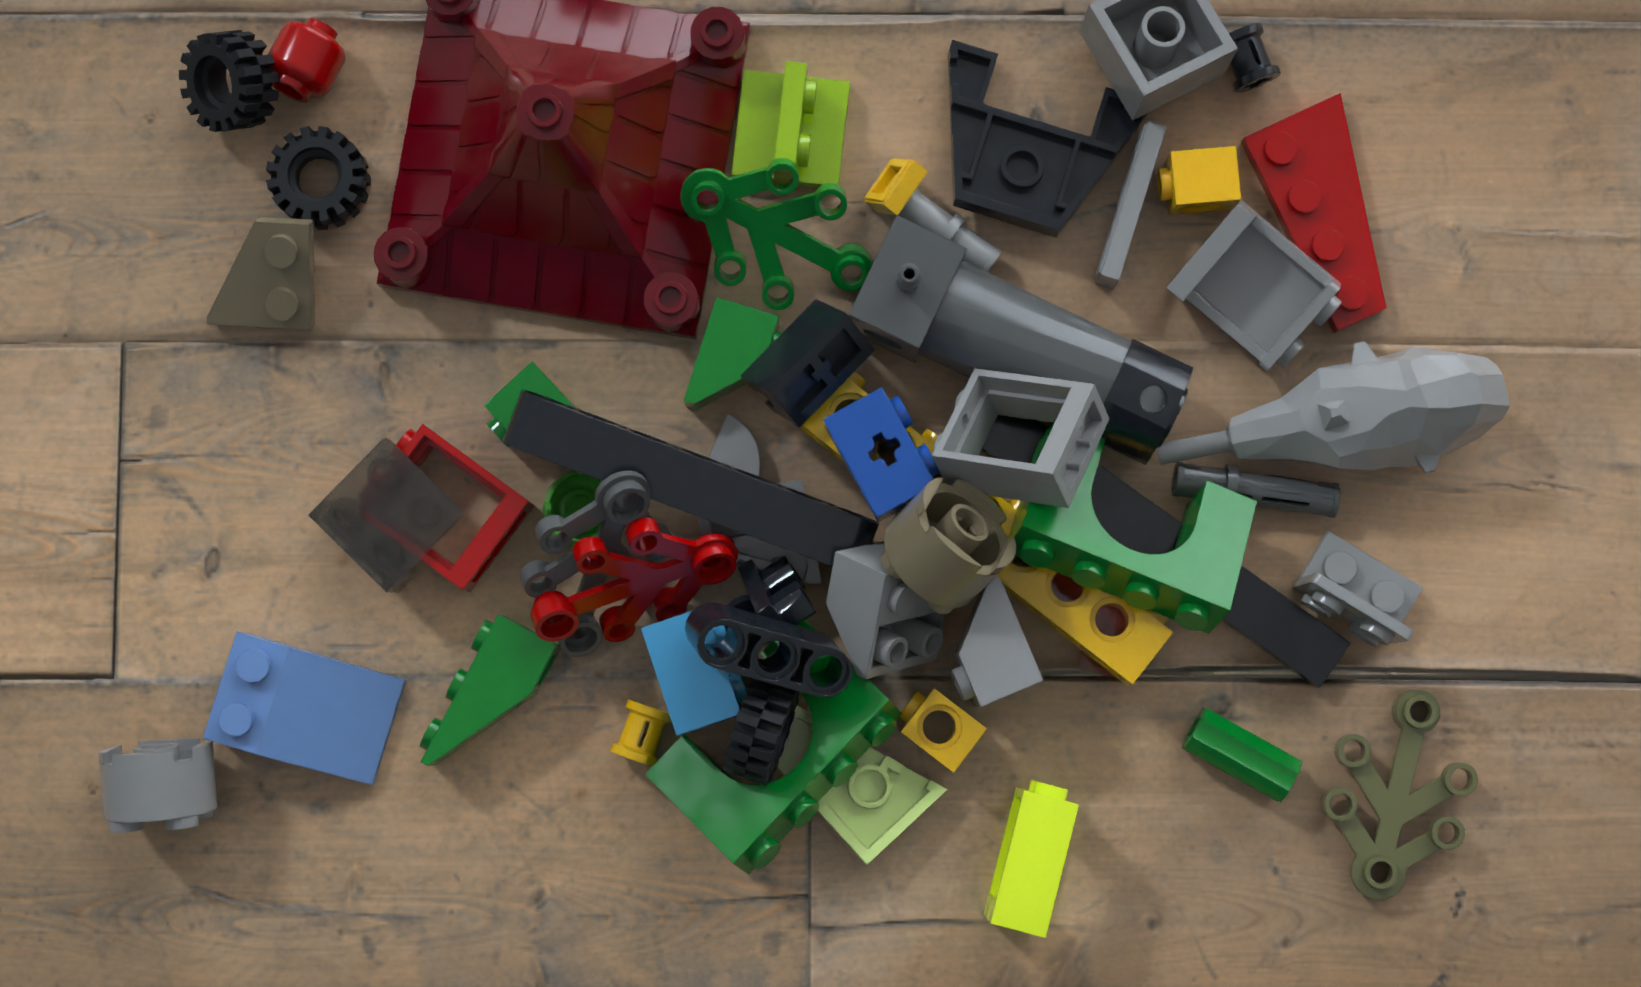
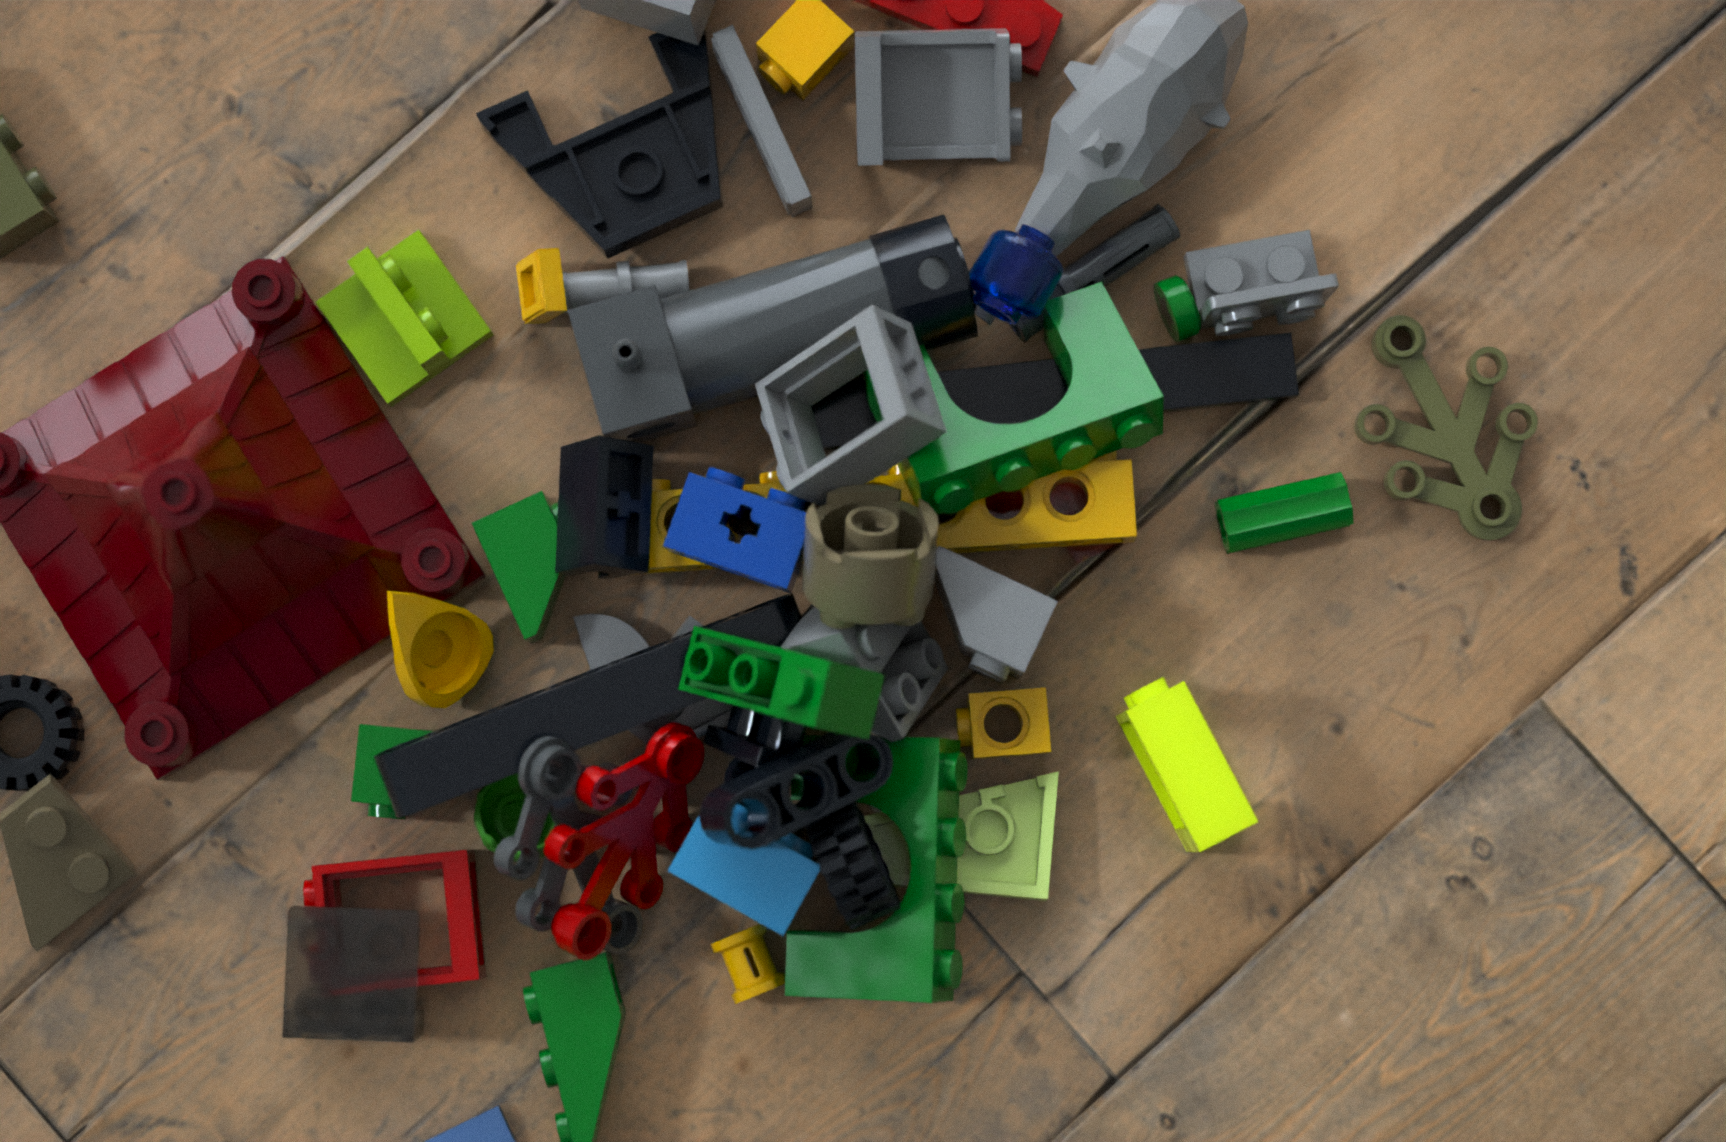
camera: 45 degrees left, 0 degrees up
(623, 356) = (436, 648): none -> yellow piece
(770, 226) = (463, 419): green plant -> none
(820, 574) = (782, 682): none -> green slope
(1205, 447) = (1015, 274): none -> clear blue head
(1291, 561) = (1177, 308): none -> green tile

